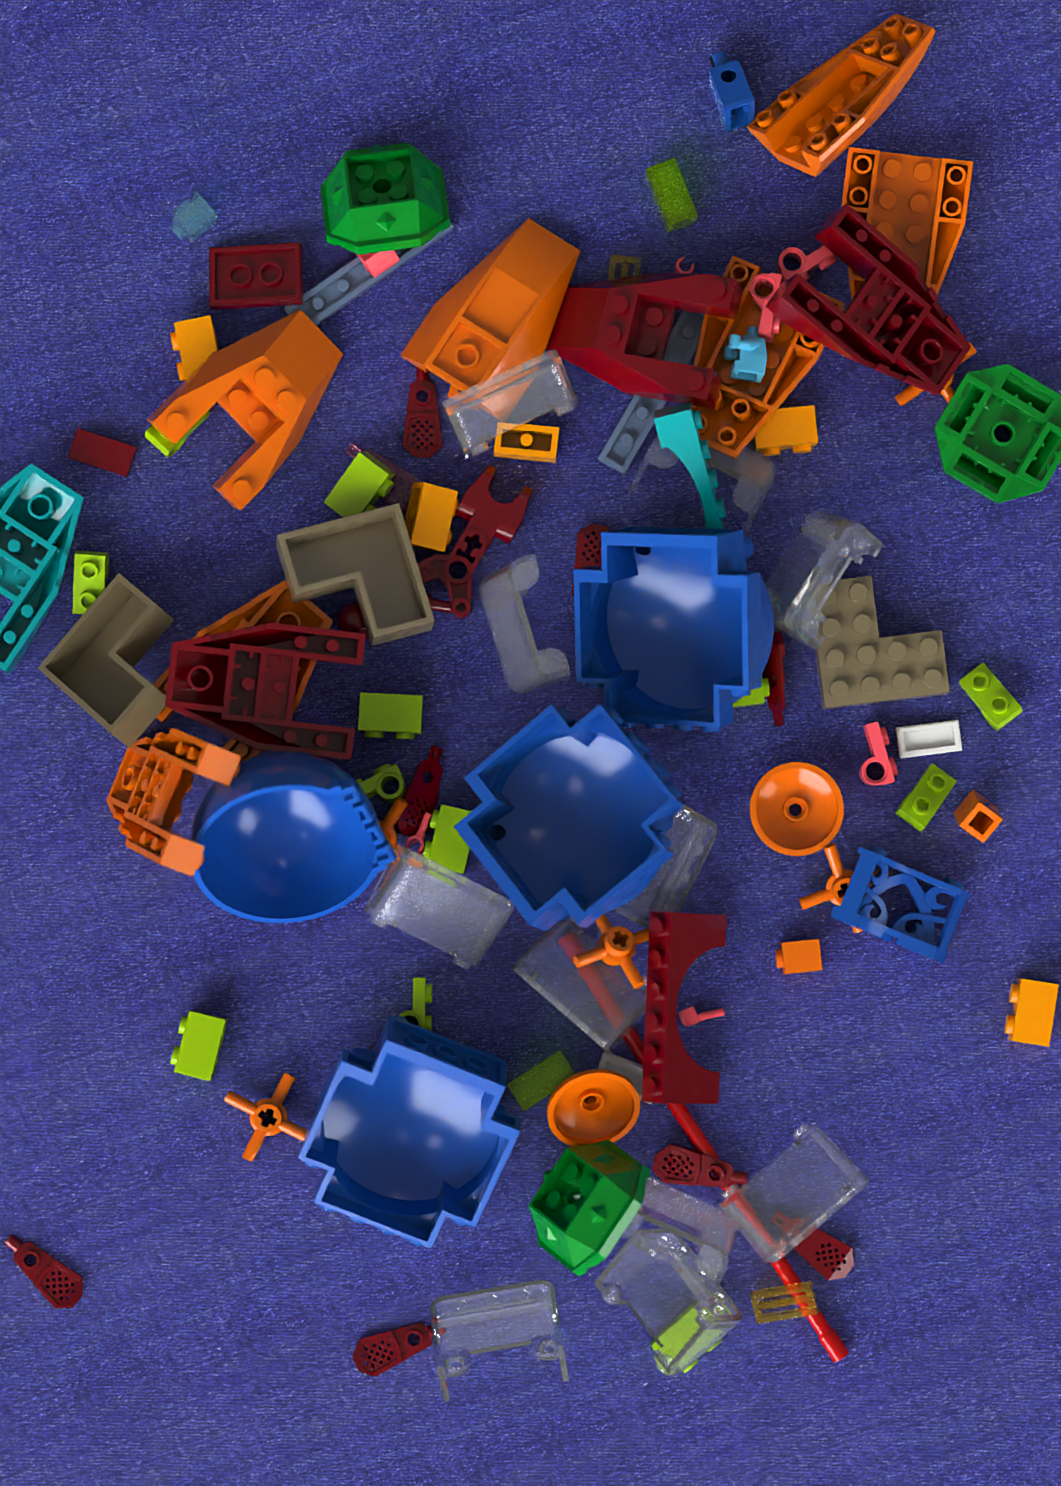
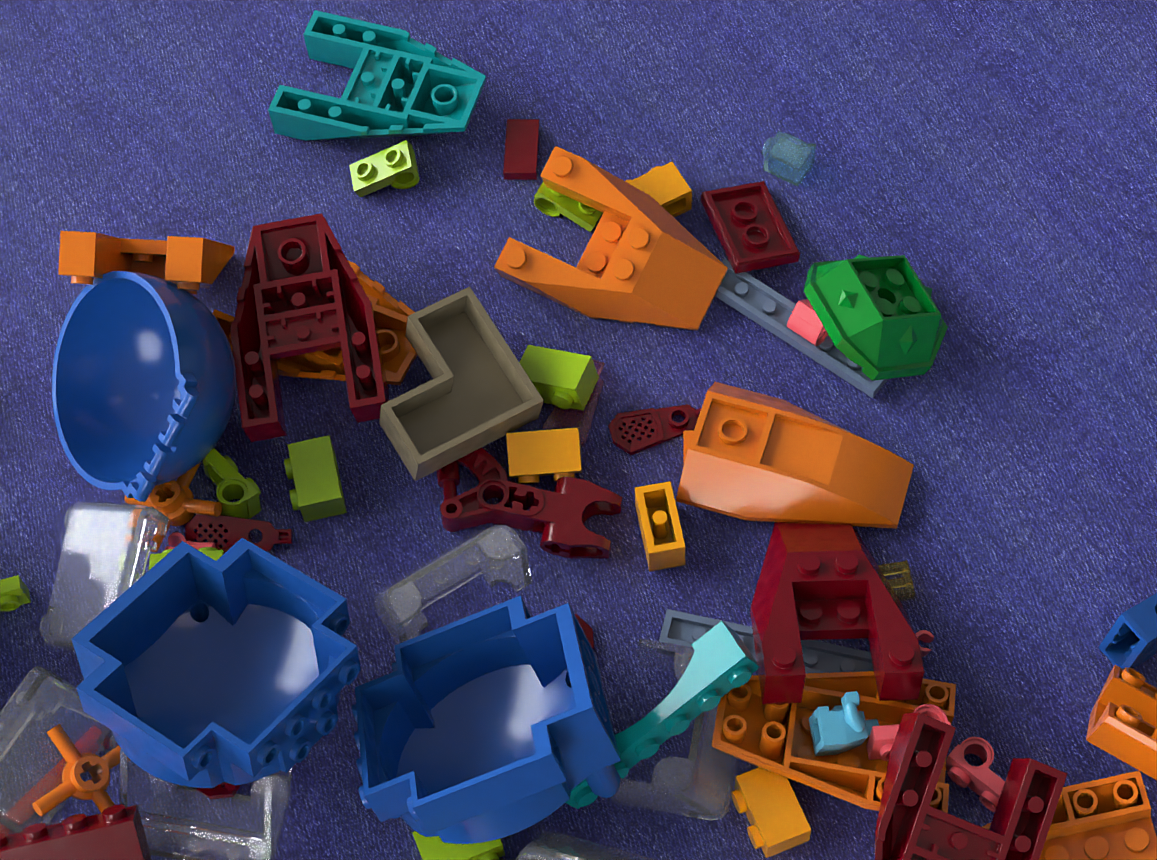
camera: 80 degrees right, 25 degrees down
(99, 658) = (300, 183): dark tan piece -> none
(509, 401) = (702, 484): clear windscreen -> none
(670, 195) = (999, 601): clear neon green brick -> none

